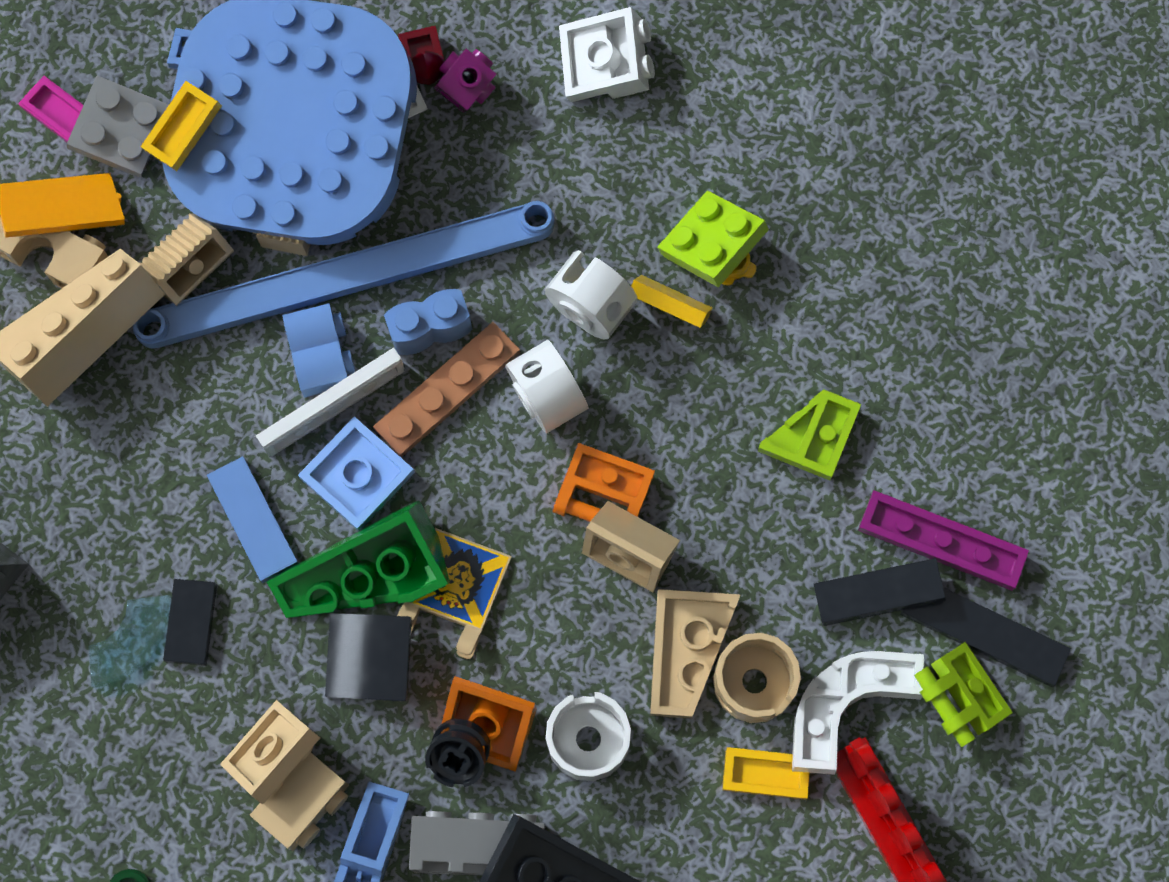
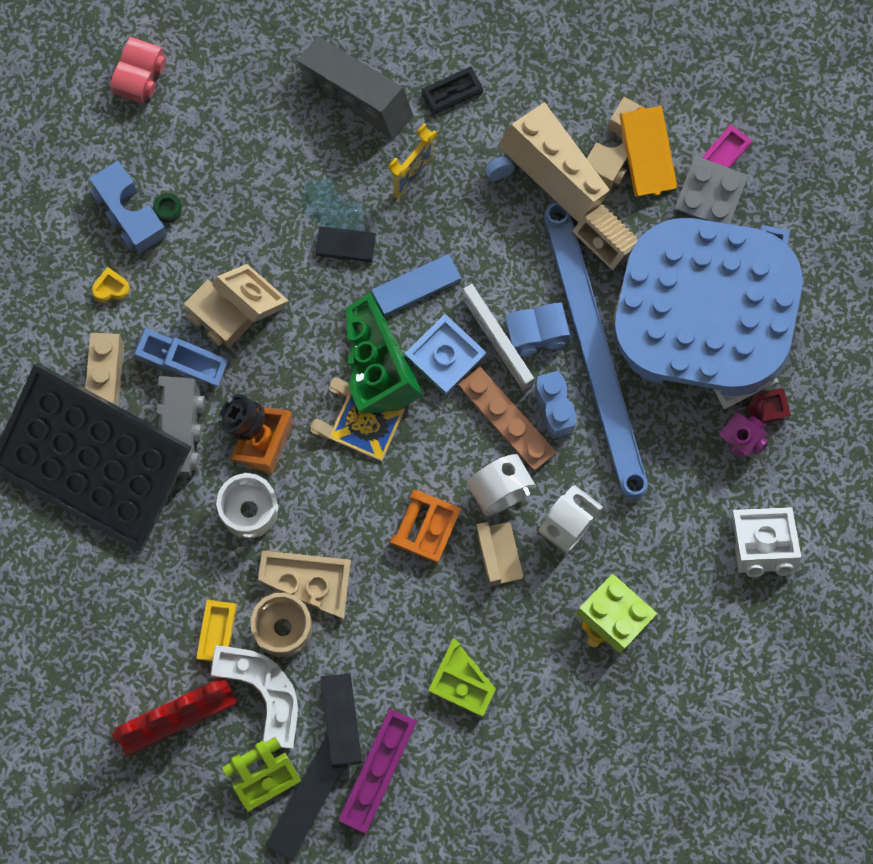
camera: 90 degrees right, 0 degrees up
(78, 408) = (499, 168): none -> light blue tile
(87, 534) = (405, 174): none -> flag
(181, 126) = (699, 228): yellow tile -> none
(368, 657) = (313, 360): black slope -> none
(629, 545) = (384, 540): tan slope -> none
(636, 394) = (499, 553): none -> tan panel
(671, 301) = (568, 580): yellow tile -> none

